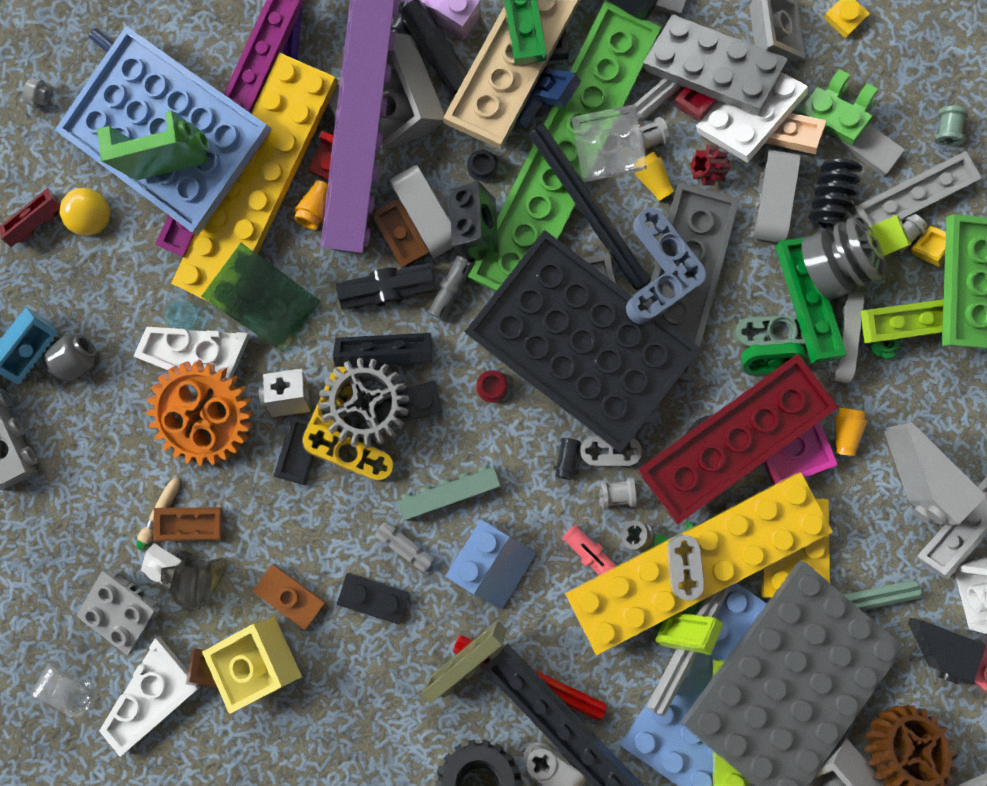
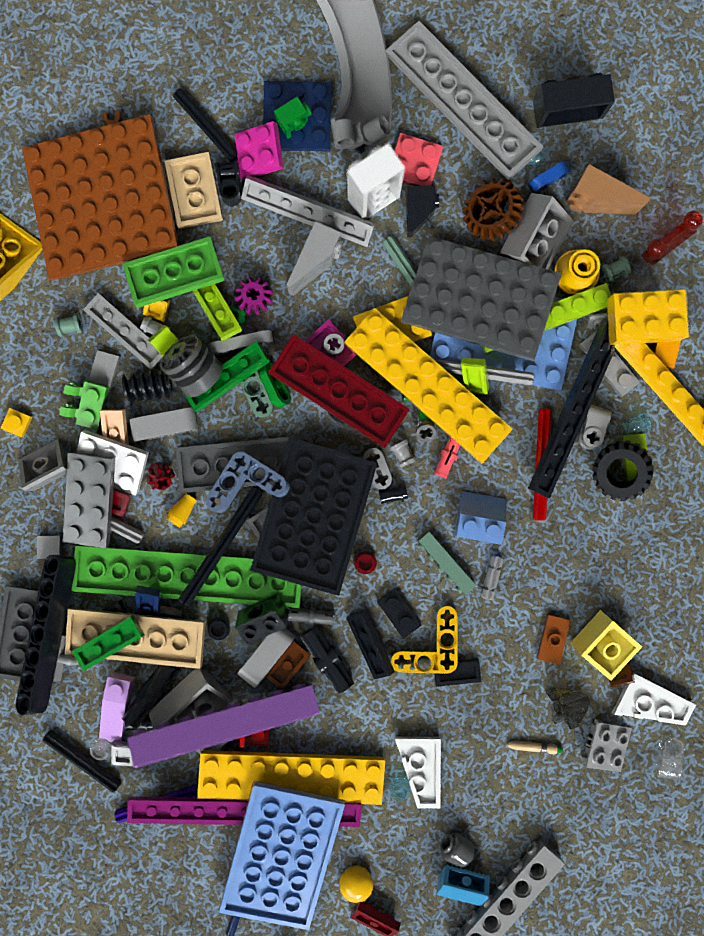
camera: 115 degrees left, 5 degrees up
(155, 154) = (292, 836): bright green panel -> none
(155, 559) = (564, 734): white plate -> none
(174, 396) = (456, 769): orange gear -> none
(187, 524) = (534, 725): dark orange plate -> none
(261, 297) = (368, 740): clear green slope -> none
(285, 393) = (424, 696): light grey brick -> none
(312, 206) = (293, 731): light orange cone -> none
(373, 598) = (532, 584): black plate -> none
(378, 397) = (426, 656): light grey gear -> none
(465, 663) = (550, 509): olive plate -> none
(609, 143) = (173, 550): clear plate -> none
(655, 133) = (154, 524): light grey bush -> none
(693, 567) = (433, 389): light grey beam -> none
(801, 447) = (340, 342): none -> light grey bush
(849, 430) = (302, 319): light orange cone -> none
(896, 386) = (261, 290): none -> magenta gear

